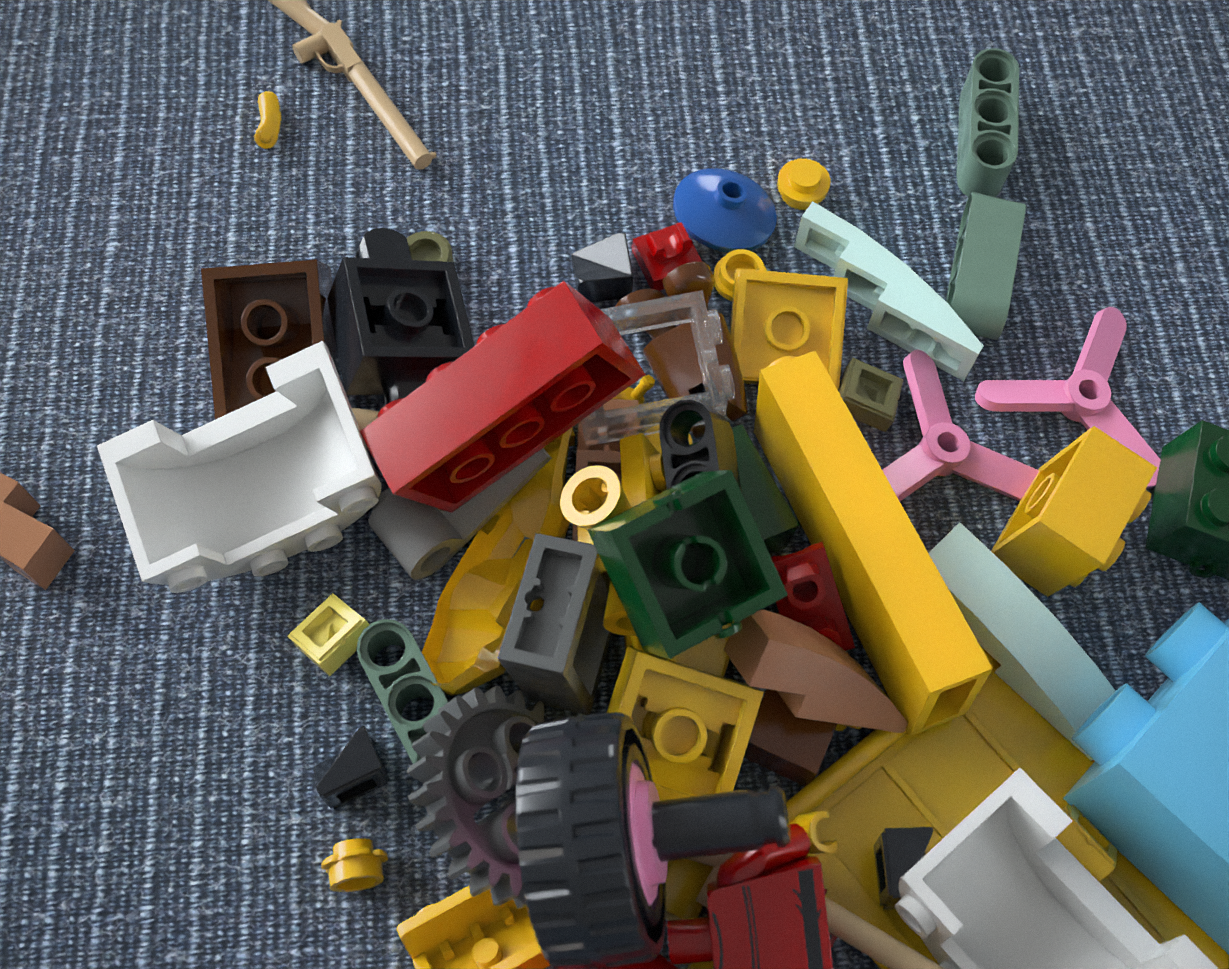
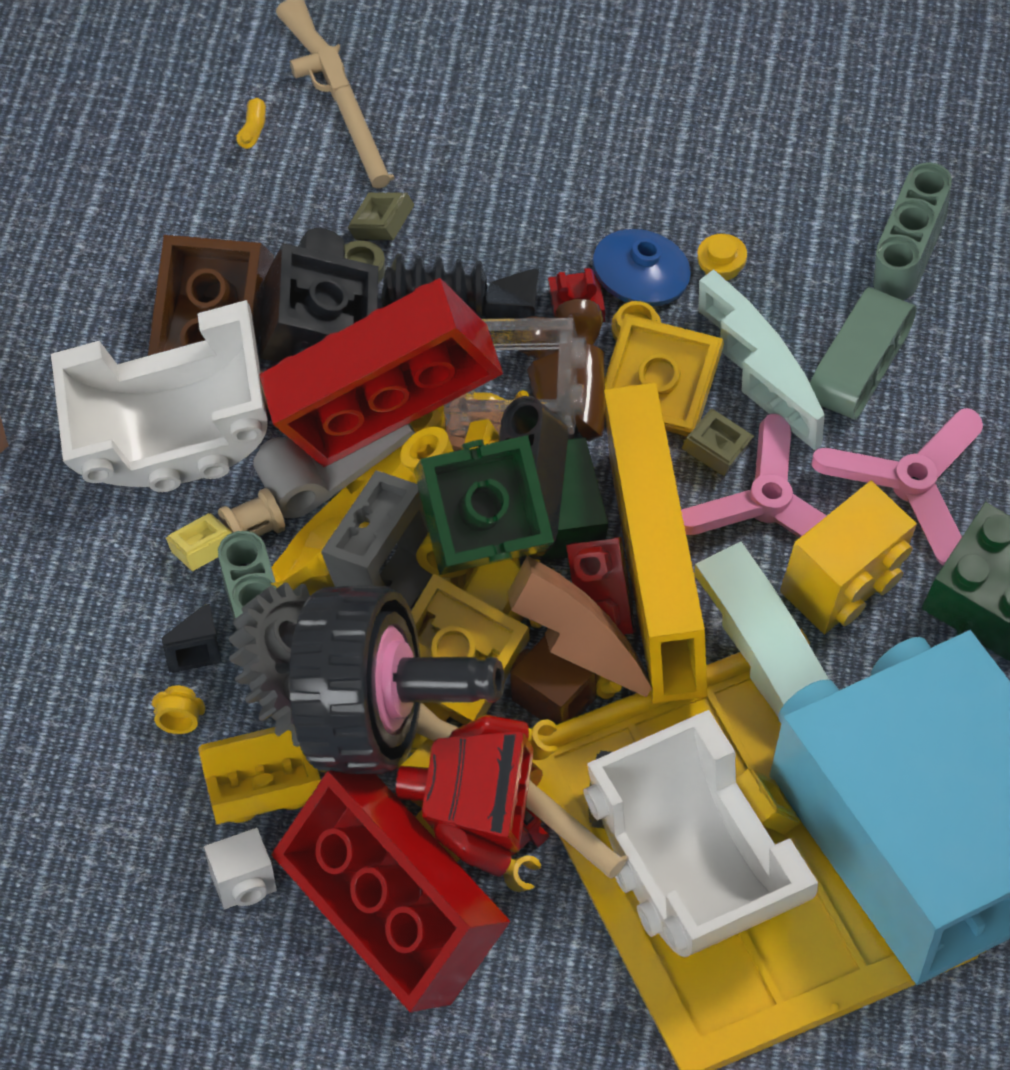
camera: 20 degrees right, 10 degrees down
(384, 591) = (255, 516): none -> tan bush
(435, 200) = (380, 216): none -> olive tile
(515, 272) = (401, 281): none -> black piece

